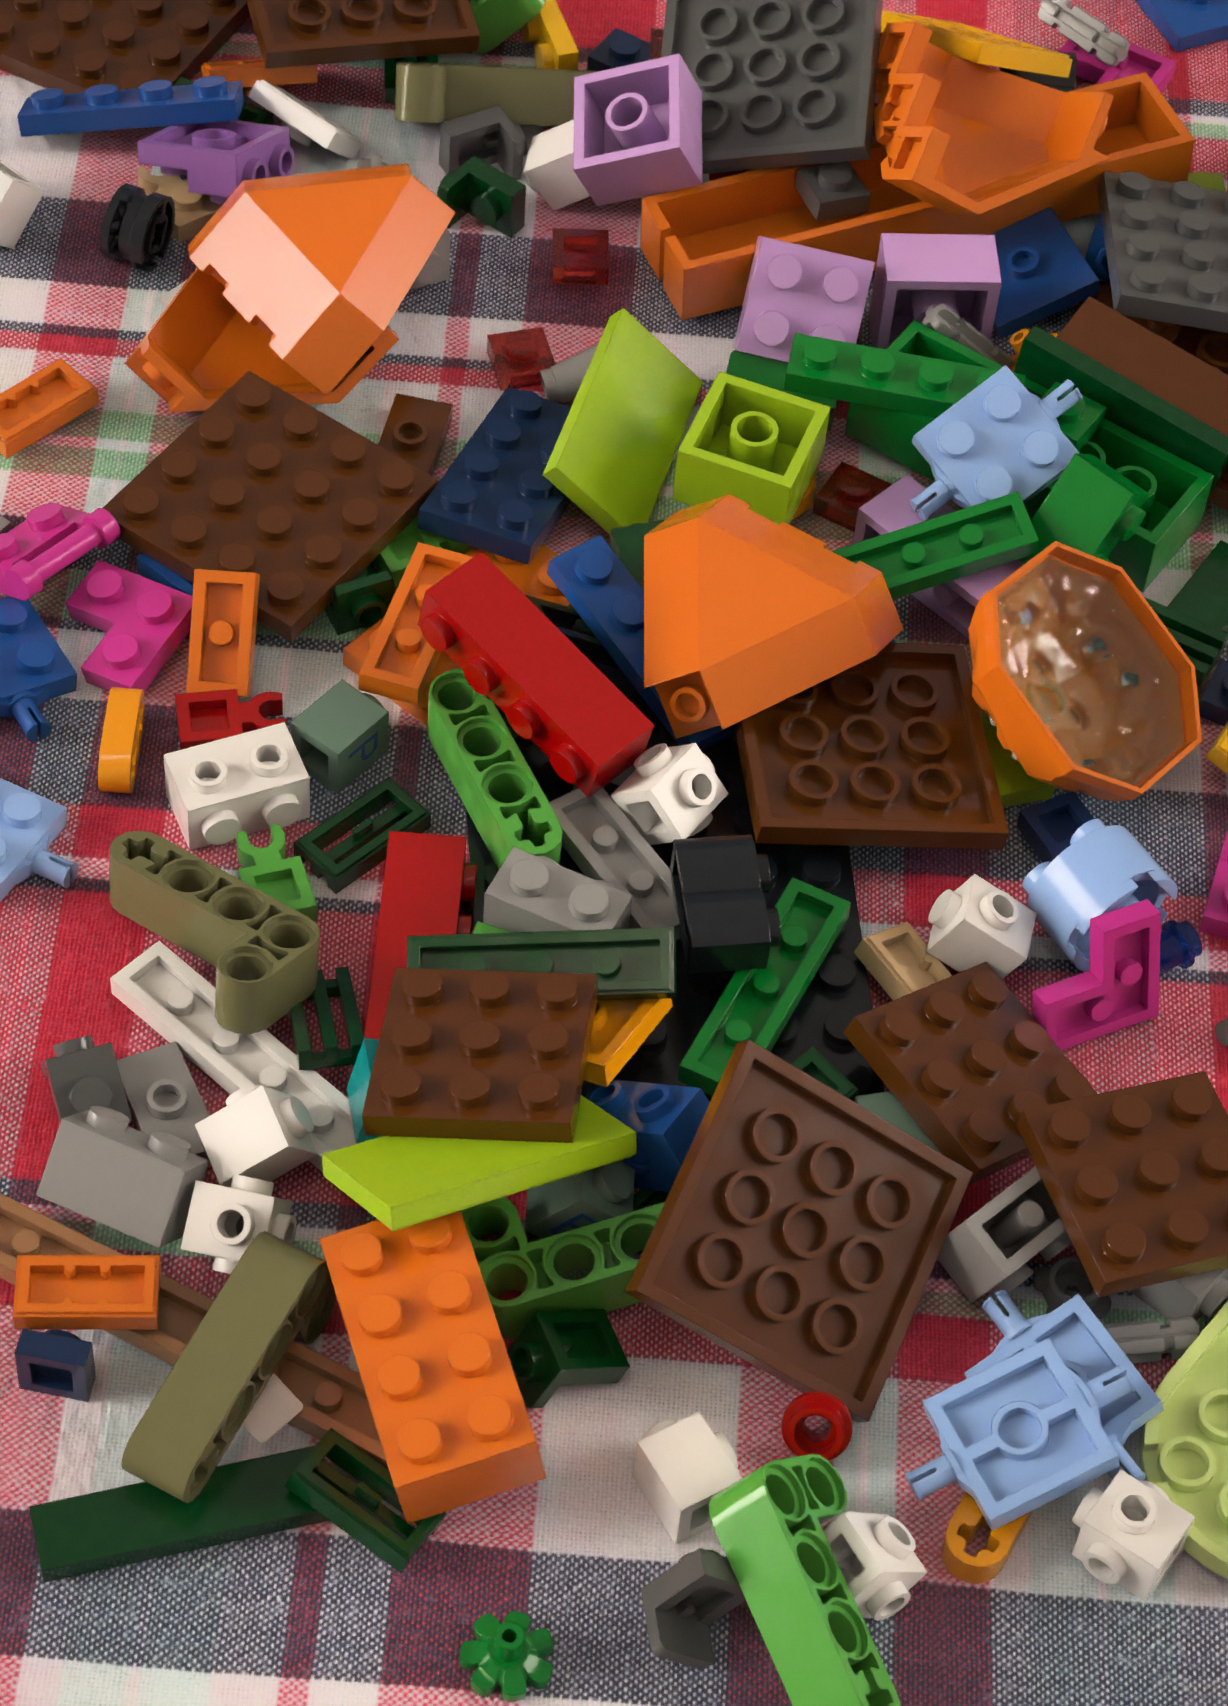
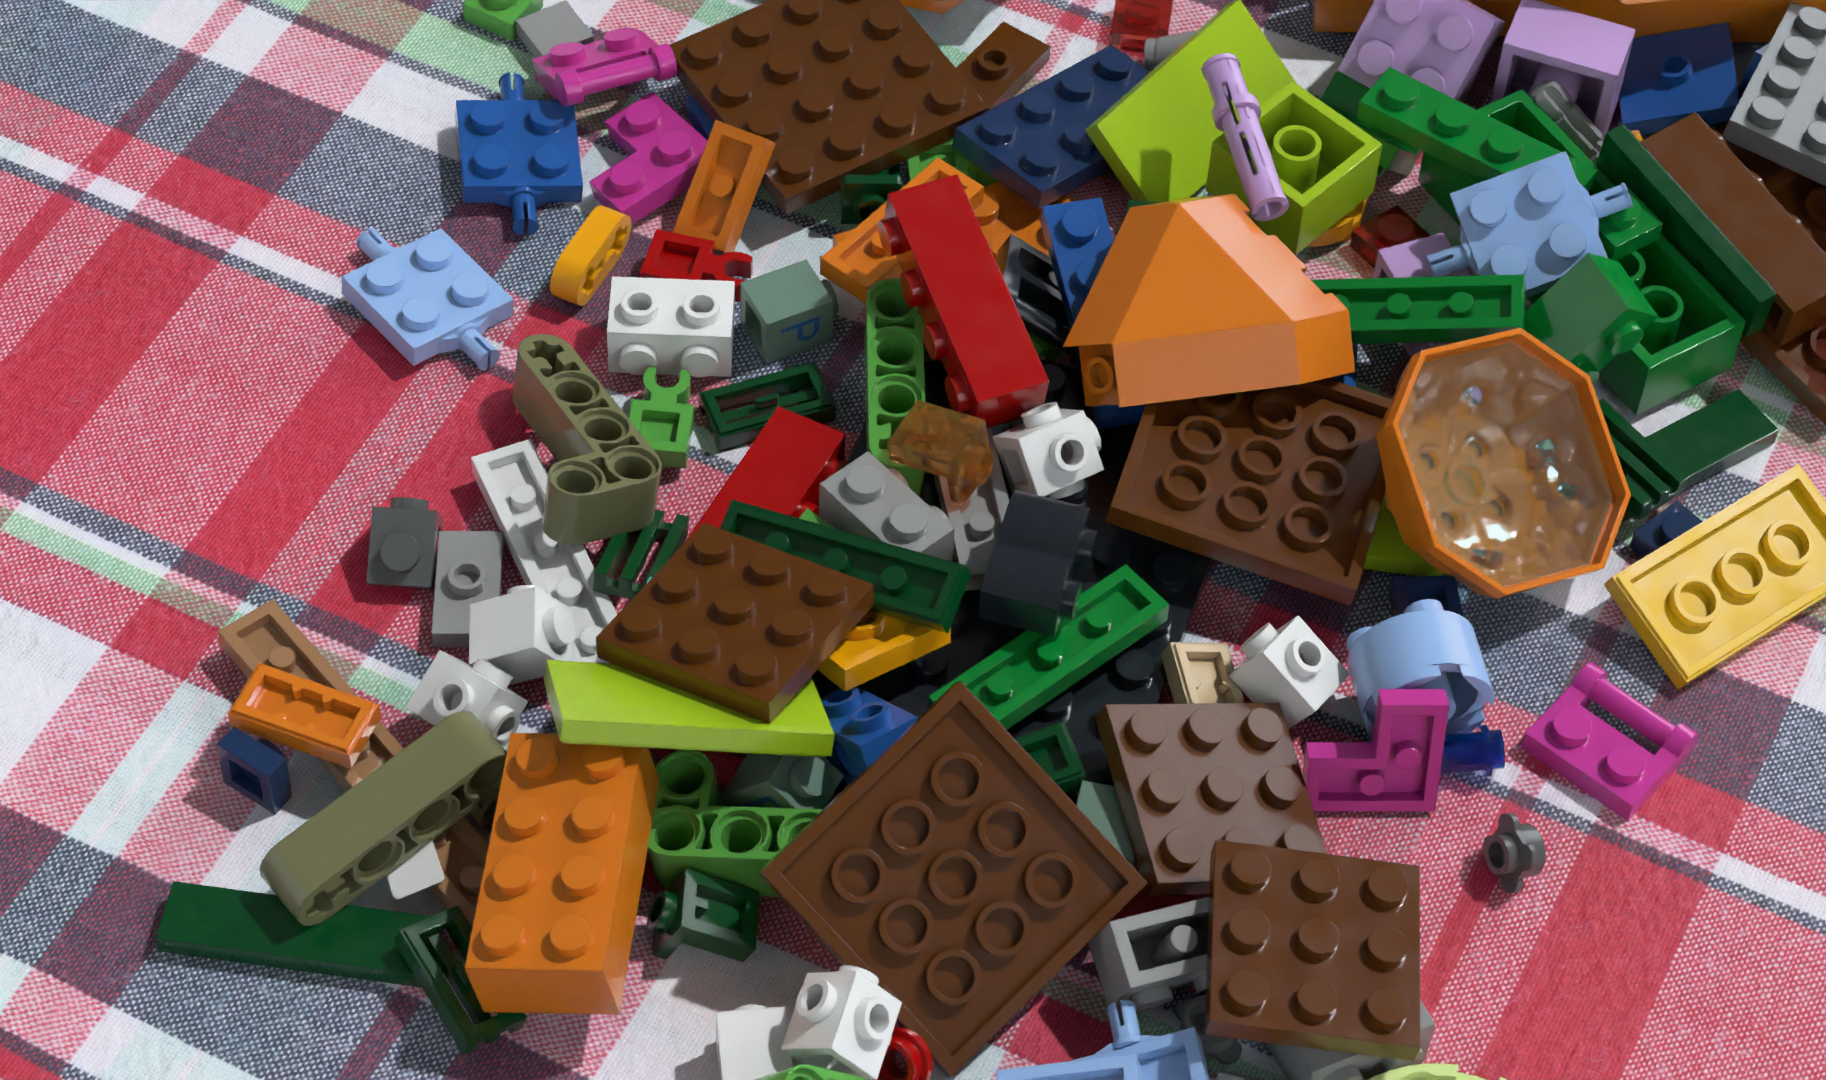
camera: 25 degrees right, 0 degrees up
(122, 1175) = (386, 625): light grey brick -> none
(581, 818) = (946, 446): none -> clear orange bracket
(671, 390) = (1227, 84): none -> lavender pin
(766, 1408) = (842, 1022): none -> white brick

